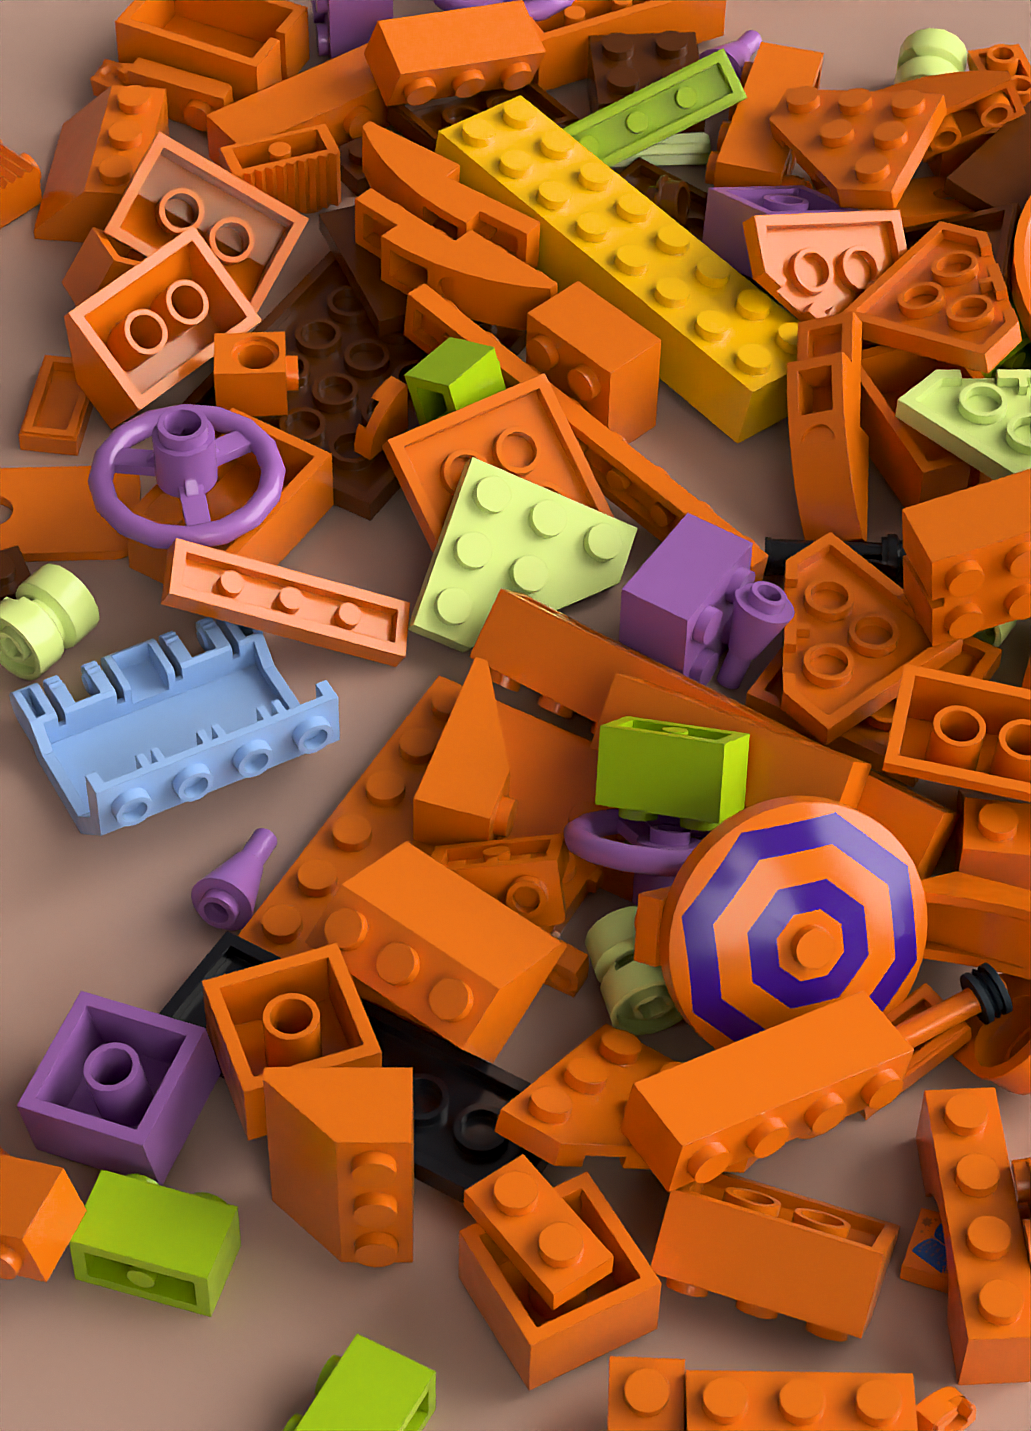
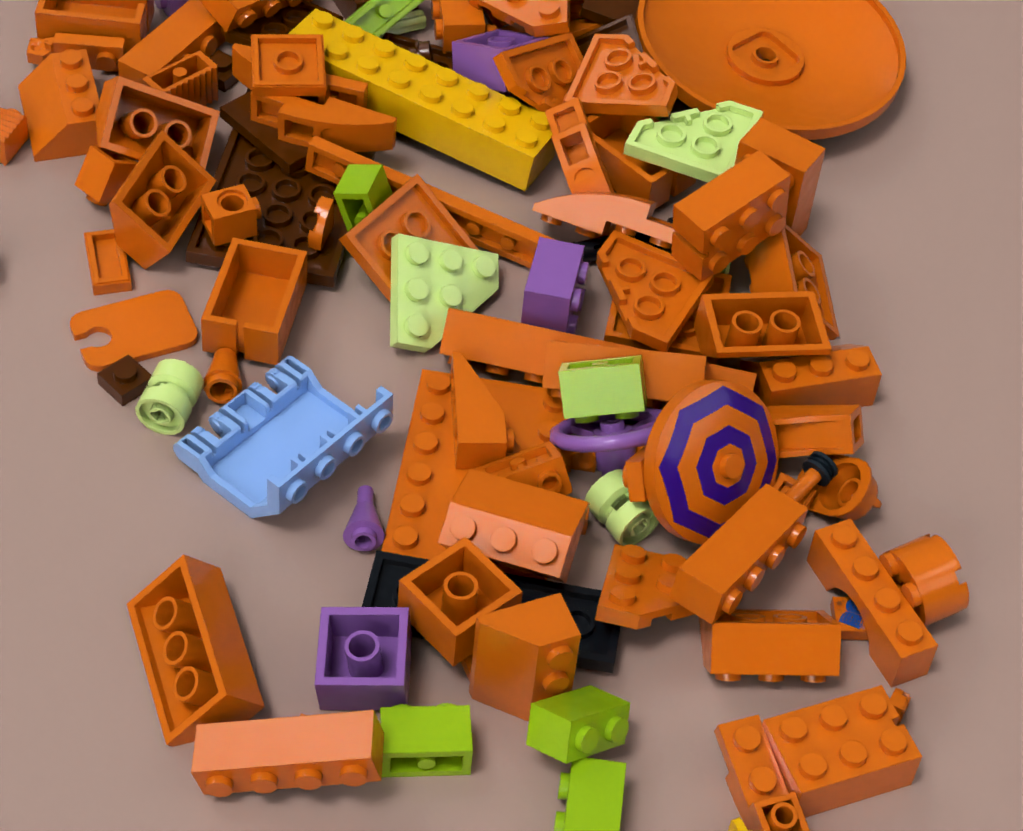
camera: 25 degrees left, 0 degrees up
(133, 612) = (223, 377): none -> orange cone
(186, 468) = (229, 279): medium lavender piece -> none
(285, 602) = (319, 347): plate -> none
(389, 1286) = (578, 723): none -> lime brick
(426, 169) = (288, 65): none -> orange tile
(538, 1231) = (653, 667): orange plate -> none
(594, 1322) = (668, 691): orange brick -> none
(597, 358) = (435, 153): orange brick -> none
(757, 618) = (598, 290): medium lavender cone -> none
(821, 501) = (596, 210): none -> orange slope

